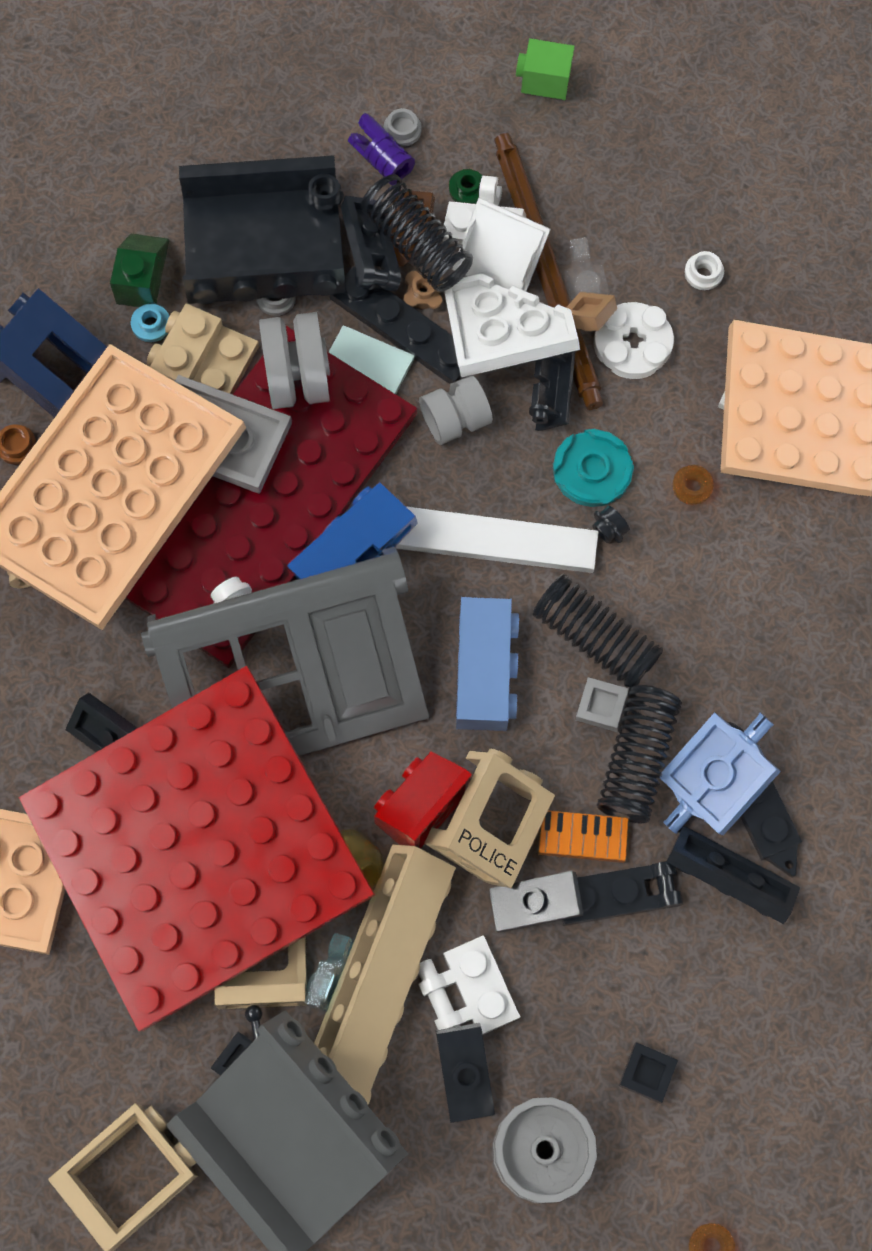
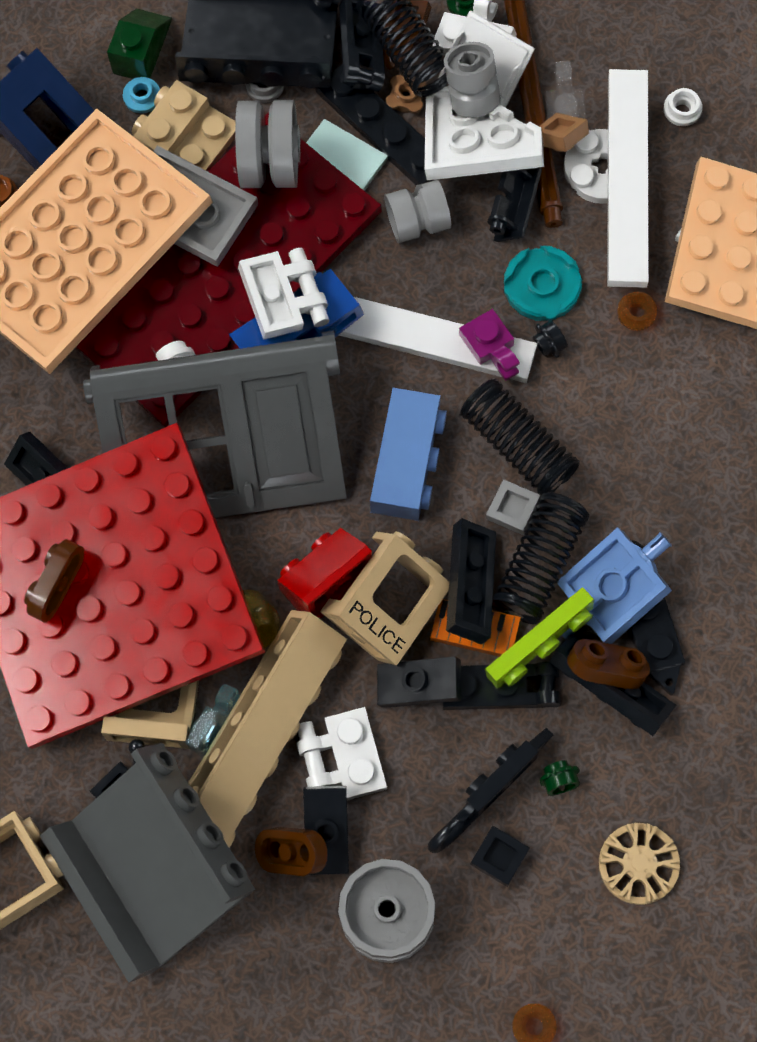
camera: 15 degrees right, 0 degrees up
(149, 835) = (47, 593): none -> reddish brown plate
(327, 520) = (272, 297): none -> white plate
(443, 1101) = (291, 851): none -> reddish brown plate
(492, 268) = (472, 79): none -> light grey wheel
(552, 534) = (491, 340): none -> magenta plate
(574, 789) = (471, 581): none -> black plate
(623, 1005) = (488, 789): none -> black plate
(657, 841) = (541, 639): none -> lime plate
(663, 351) = (627, 179): none -> white tile
(695, 979) = (558, 775): none -> dark green plate
(727, 856) = (608, 664): none -> reddish brown plate
(790, 1058) = (639, 863): none -> tan wheel

